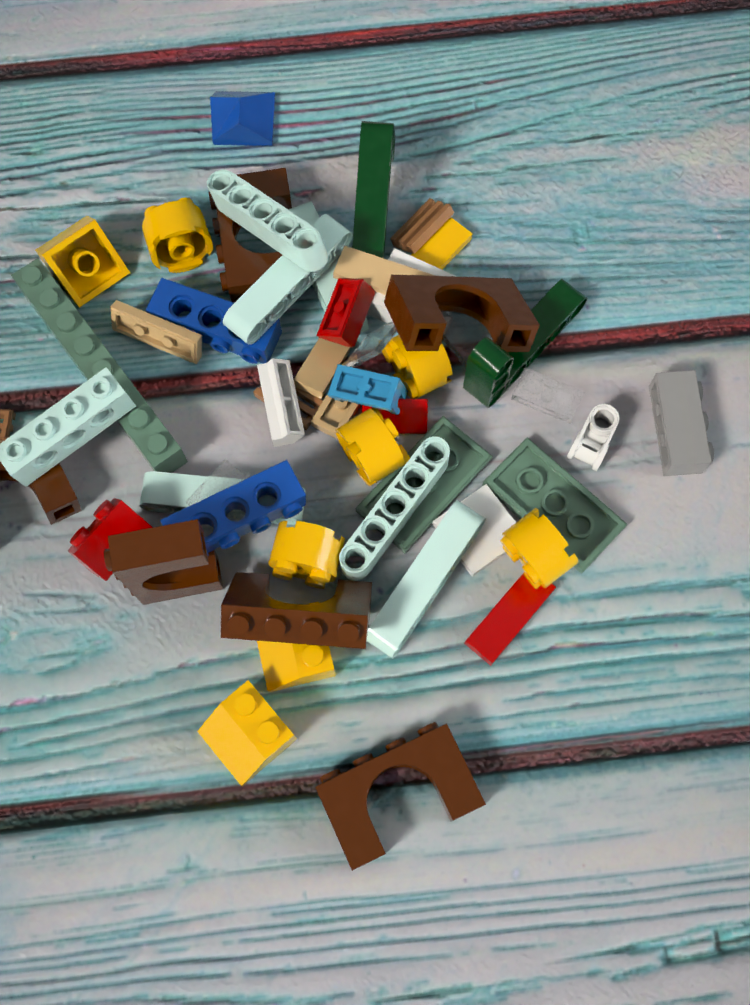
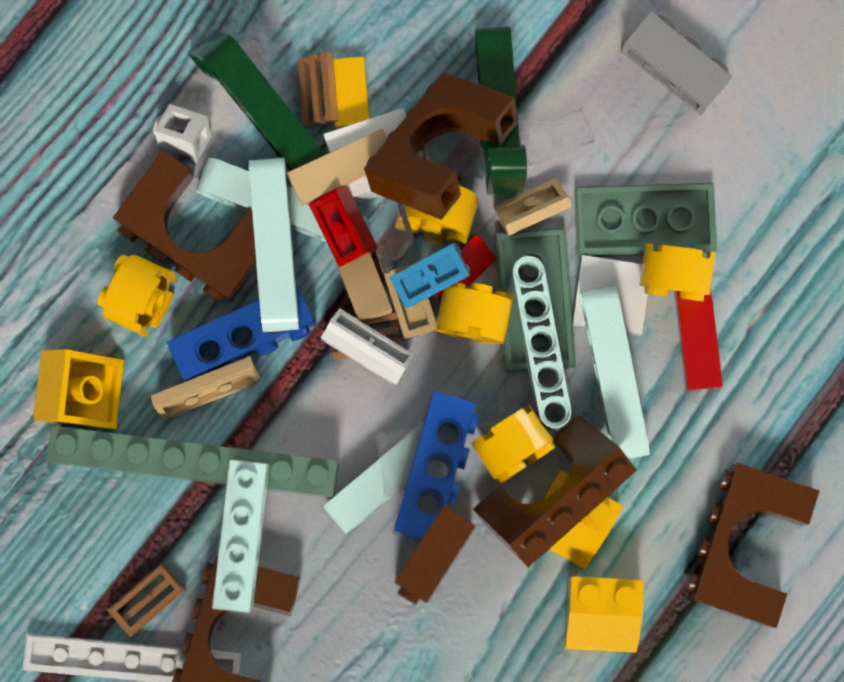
camera: 50 degrees left, 10 degrees up
(90, 542) = (365, 581): red slope -> none
(242, 118) = (66, 134): blue slope -> none
(268, 220) = (196, 213): light aqua beam -> none
(311, 174) = (182, 132): none -> white brick
(485, 421) = (532, 206): none -> tan plate
(593, 440) = (627, 139): white piece -> none

